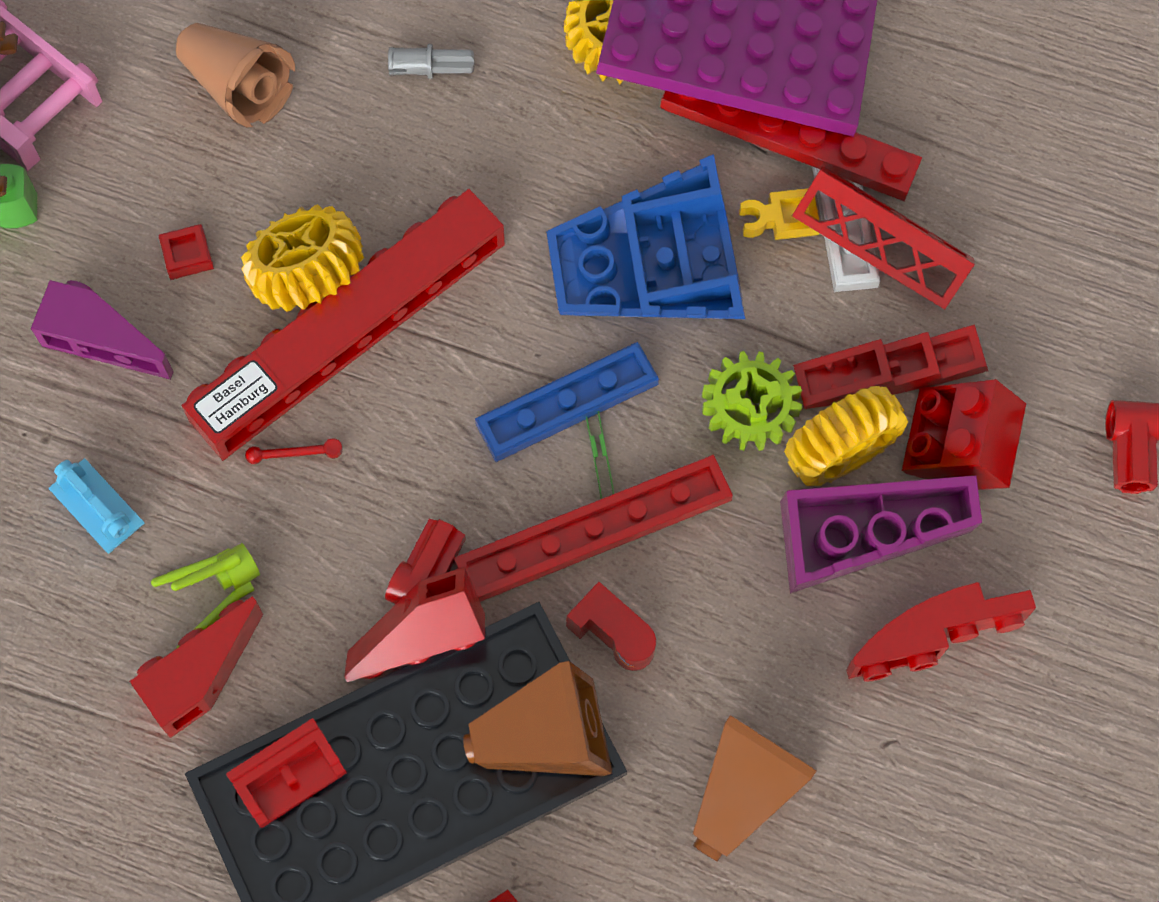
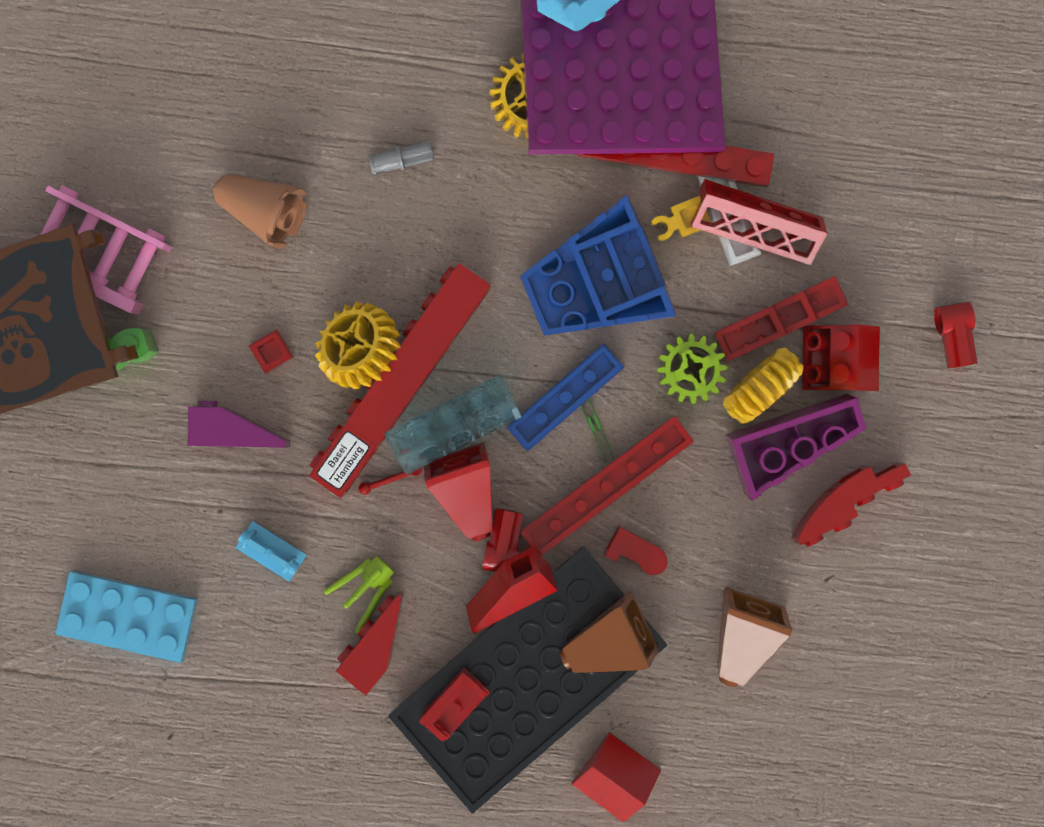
camera: 15 degrees left, 20 degrees up
(392, 481) = (464, 489): none -> slope
(401, 390) = (453, 424): none -> clear light blue brick

